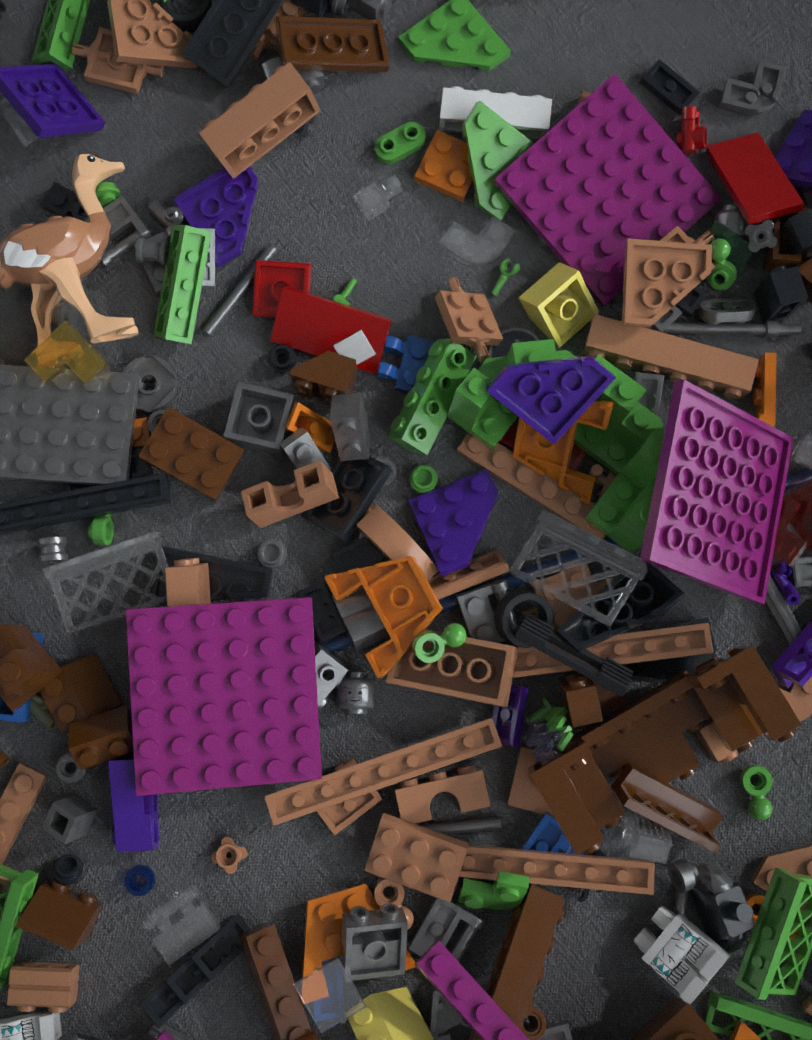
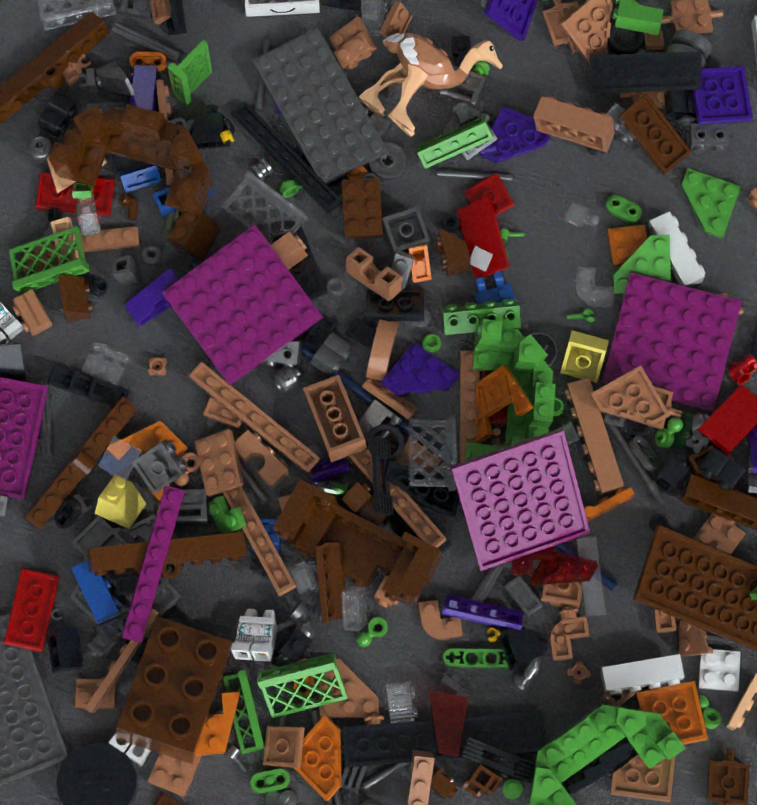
camera: 60 degrees right, 5 degrees down
(65, 347) = (376, 105): clear yellow plate -> none
(101, 738) = (178, 257): reddish brown slope -> none
(131, 884) = (112, 323): clear blue plate -> none
(166, 216) = (491, 109): flat silver arm -> none
(350, 426) = (432, 282): flat silver brick -> none
(401, 600) = (352, 366): orange wing -> none
(453, 636) = (350, 404): bright green plate -> none
(468, 318) = (539, 309): nougat plate -> none
(551, 392) = (514, 369): dark purple plate -> none
(720, 798) = (354, 608): none -> clear brick
(783, 583) = (502, 580): dark purple arm -> none

